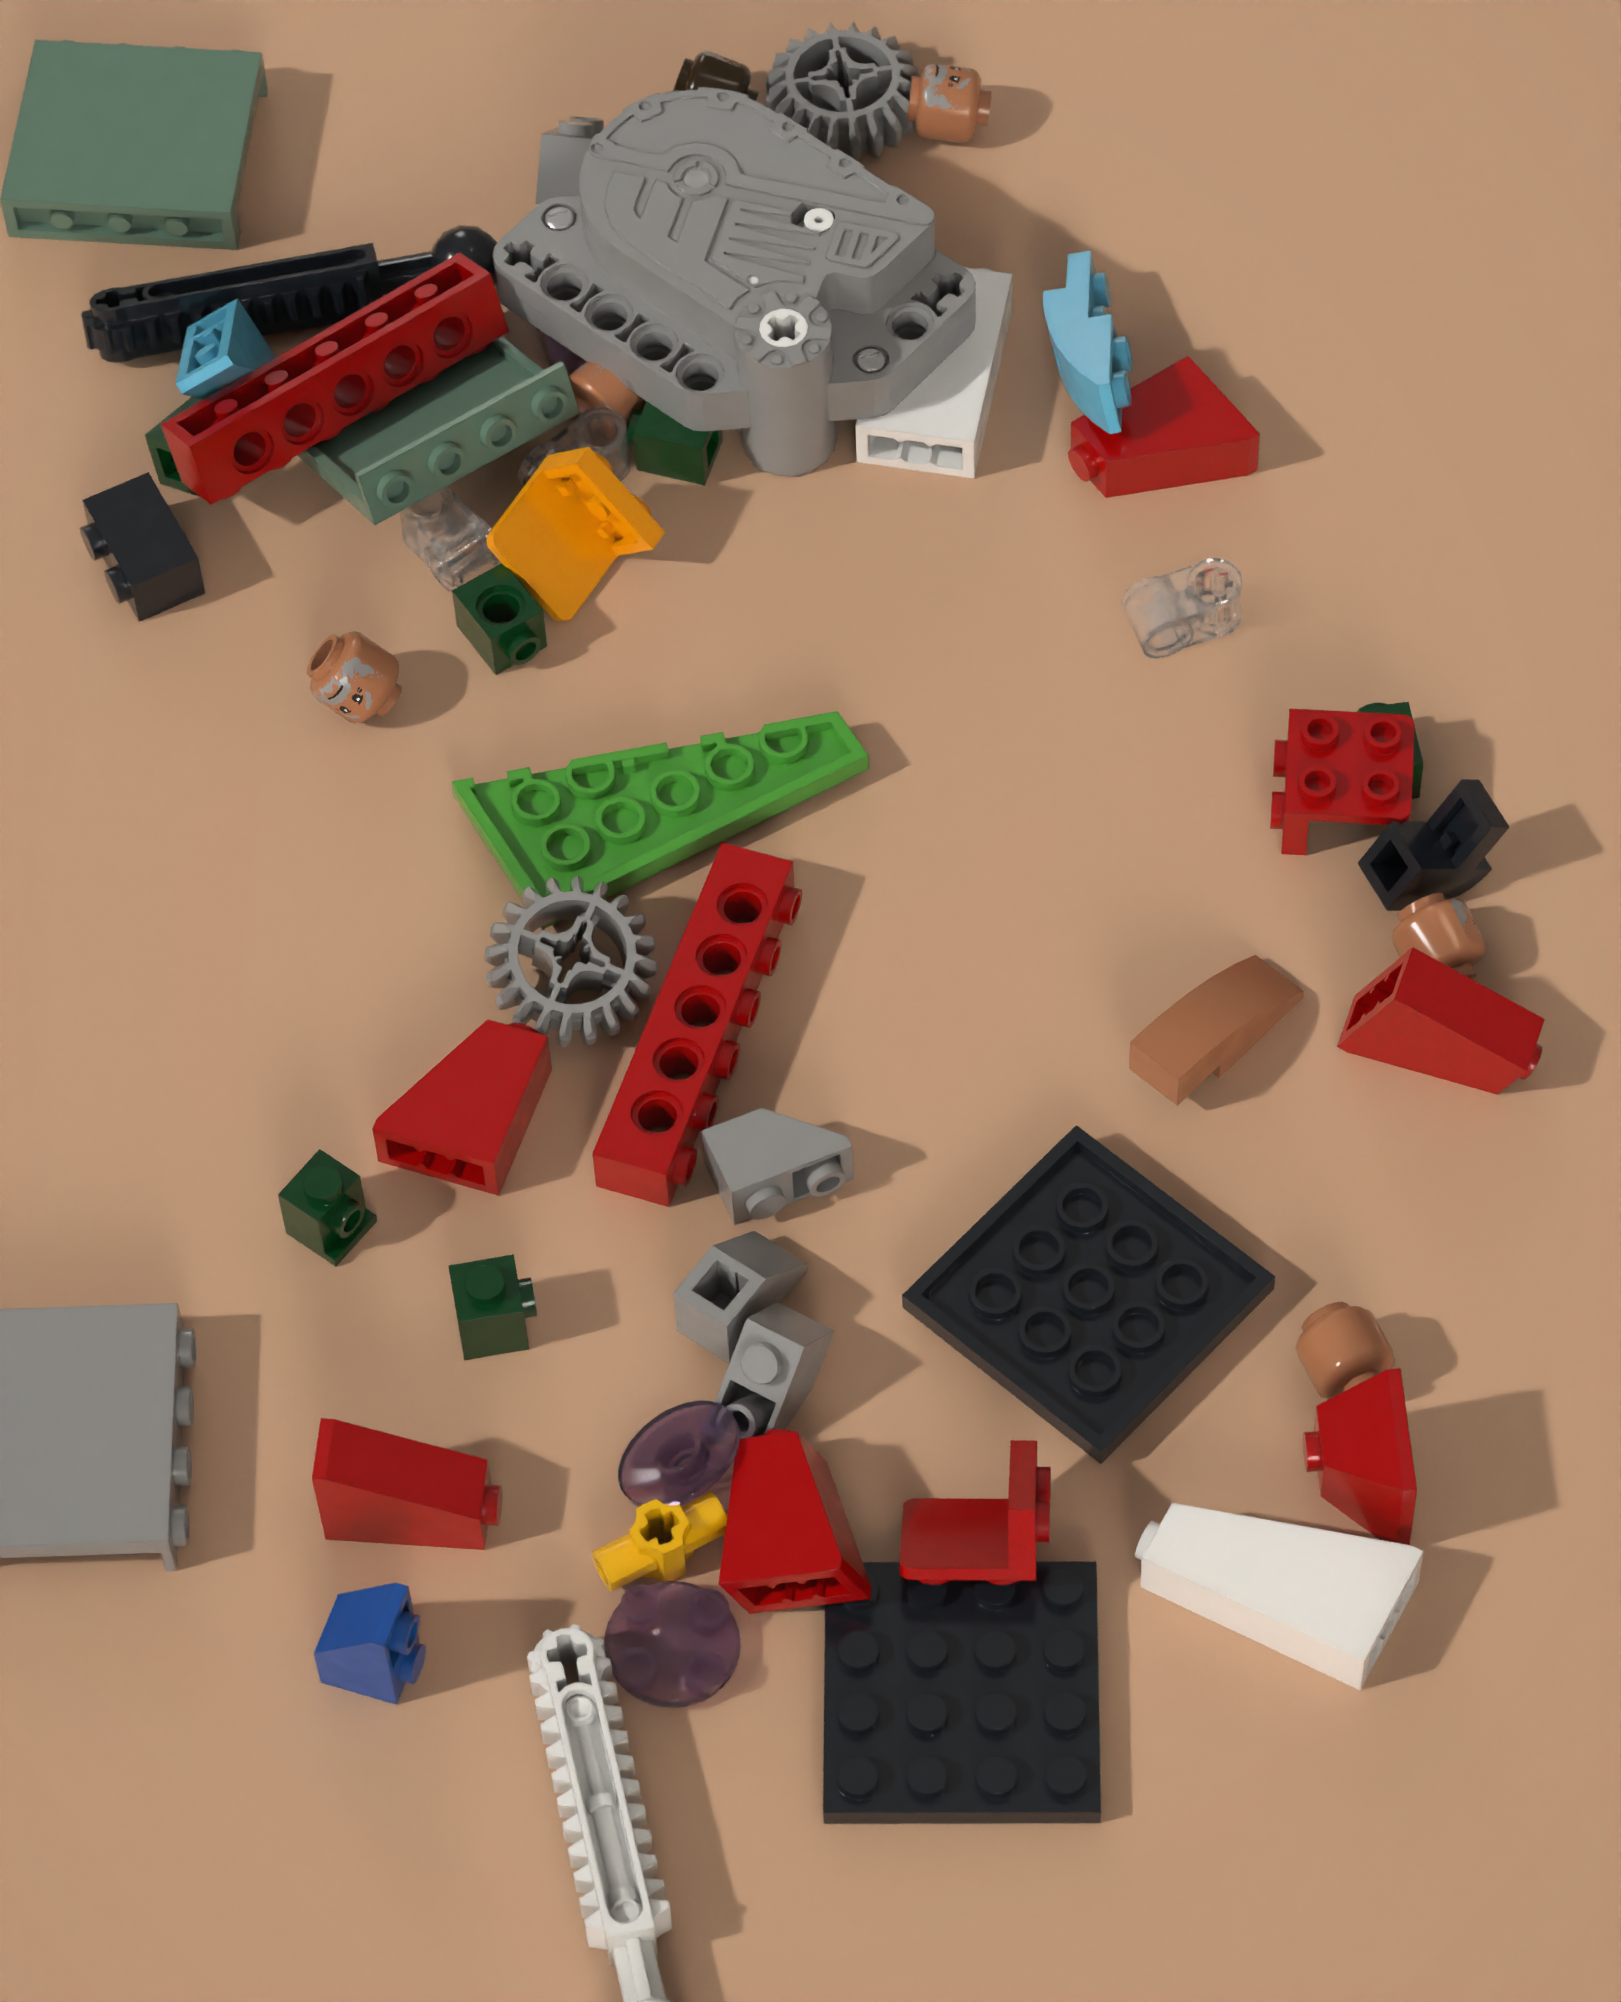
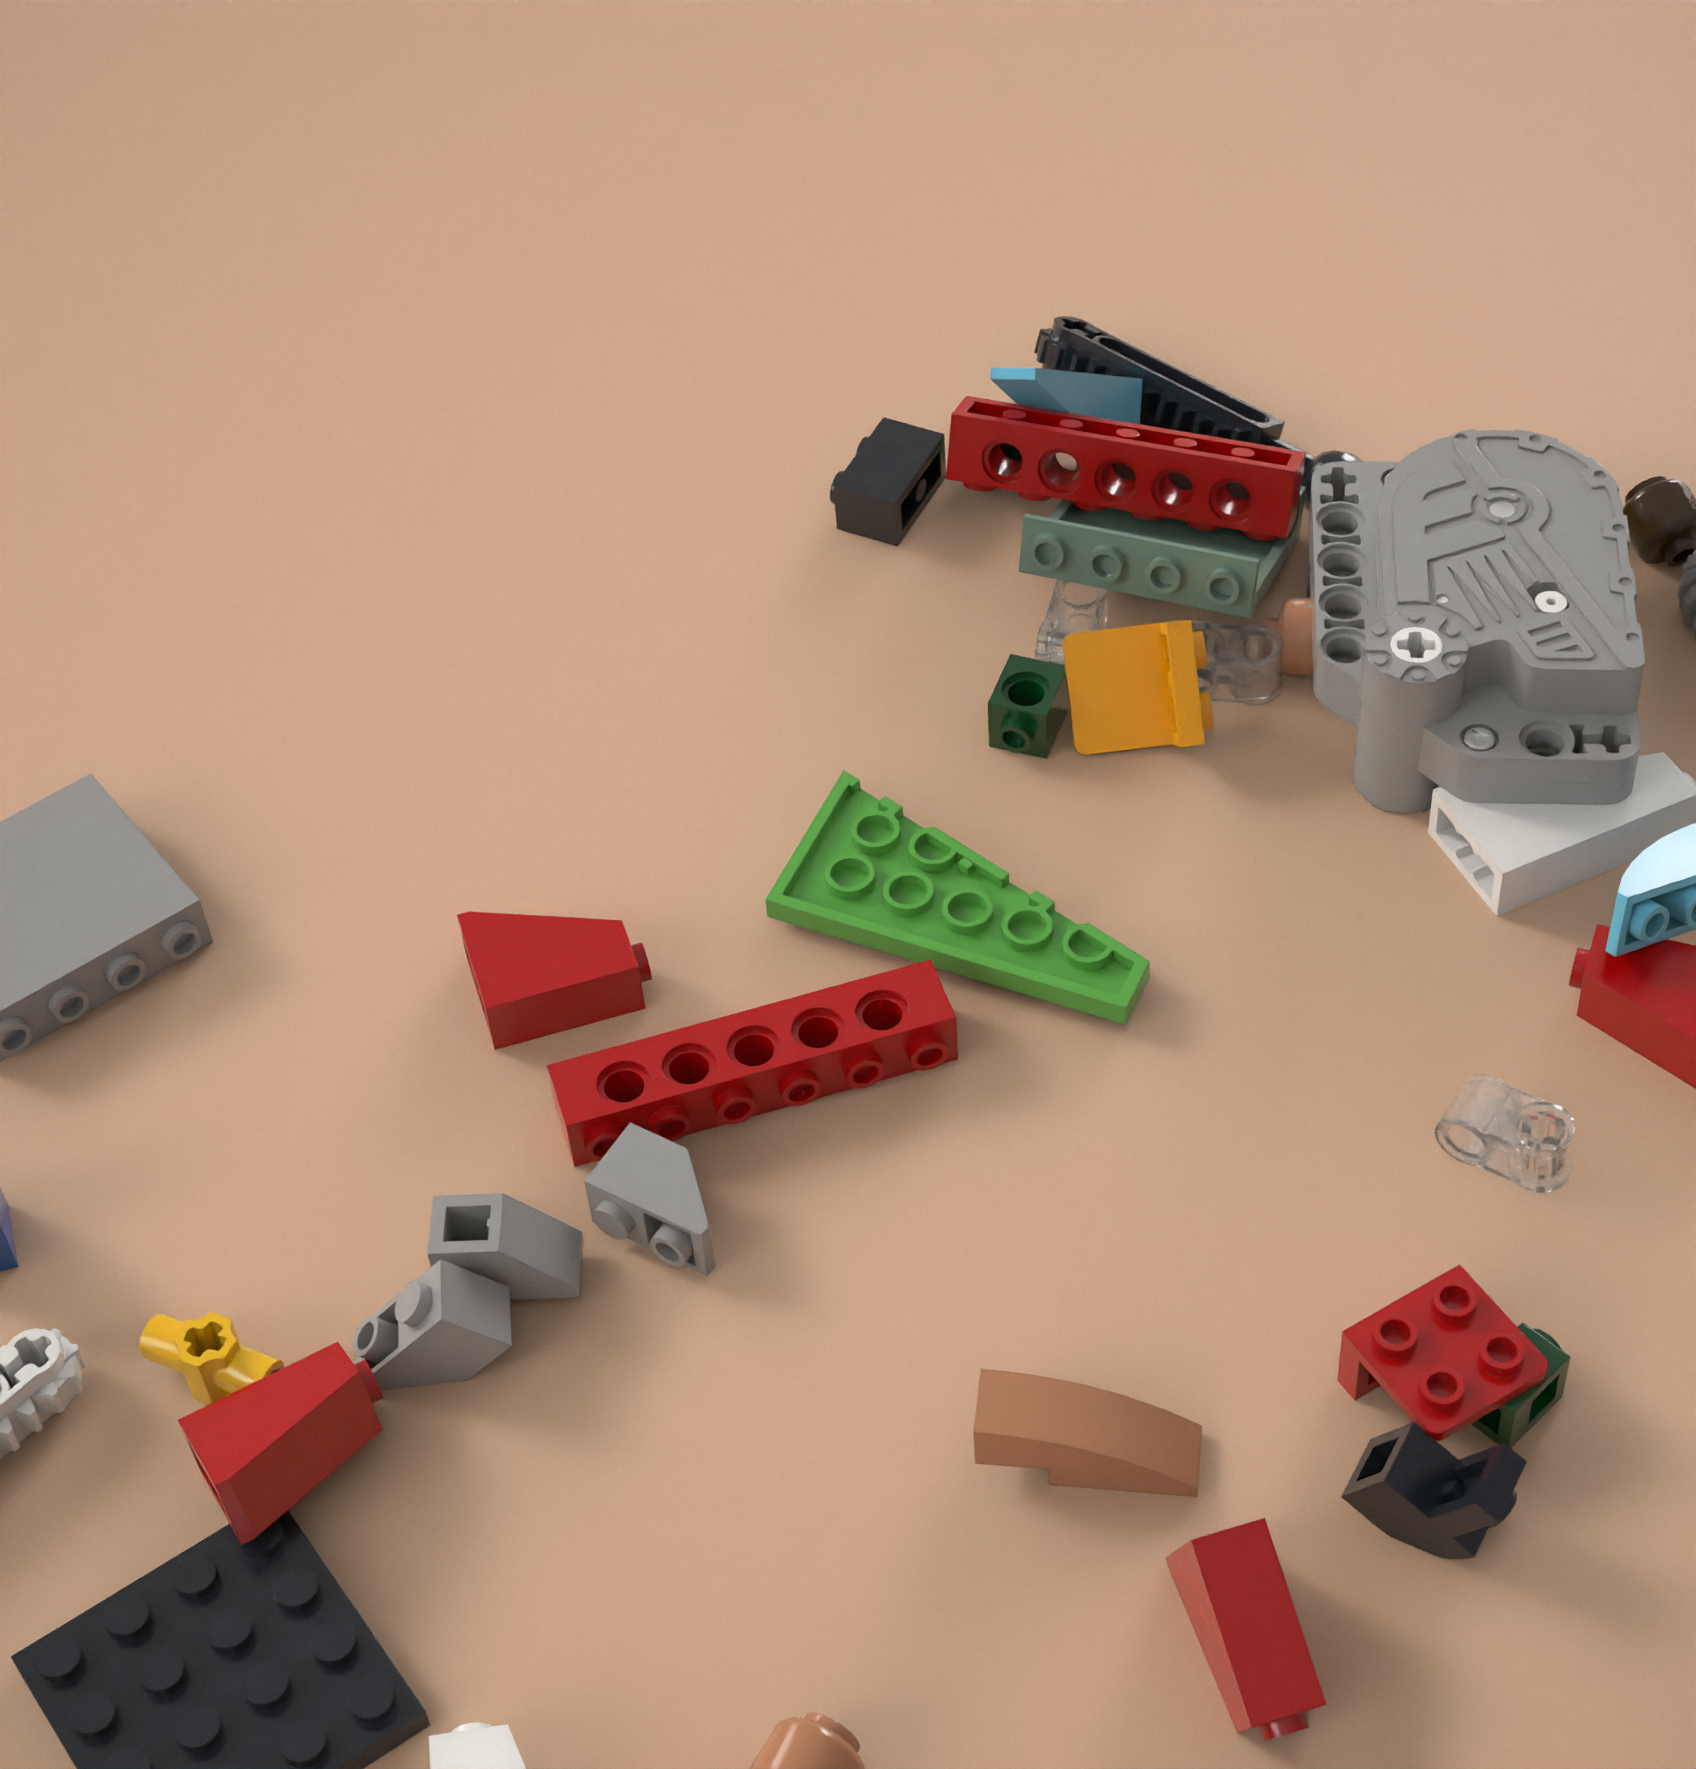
camera: 55 degrees right, 10 degrees down
(132, 144) = (1234, 262): sand green panel -> none
(326, 1208) = (375, 940): dark green brick -> none
(354, 677) = (883, 656): nougat head -> none
(401, 1490) = (125, 1141): red slope -> none
(491, 1306) = (357, 1098): dark green brick -> none
(550, 949) = (694, 938): light grey gear -> none
(670, 448) = (1300, 713): dark green brick -> none
(672, 1643) = (118, 1434): dish -> none
(679, 1454) = (304, 1317): dish -> none
(980, 1536) = (374, 1588): red bracket -> none
(1088, 1293) = (714, 1524): black plate -> none
(1442, 931) = (1343, 1561): nougat head -> none

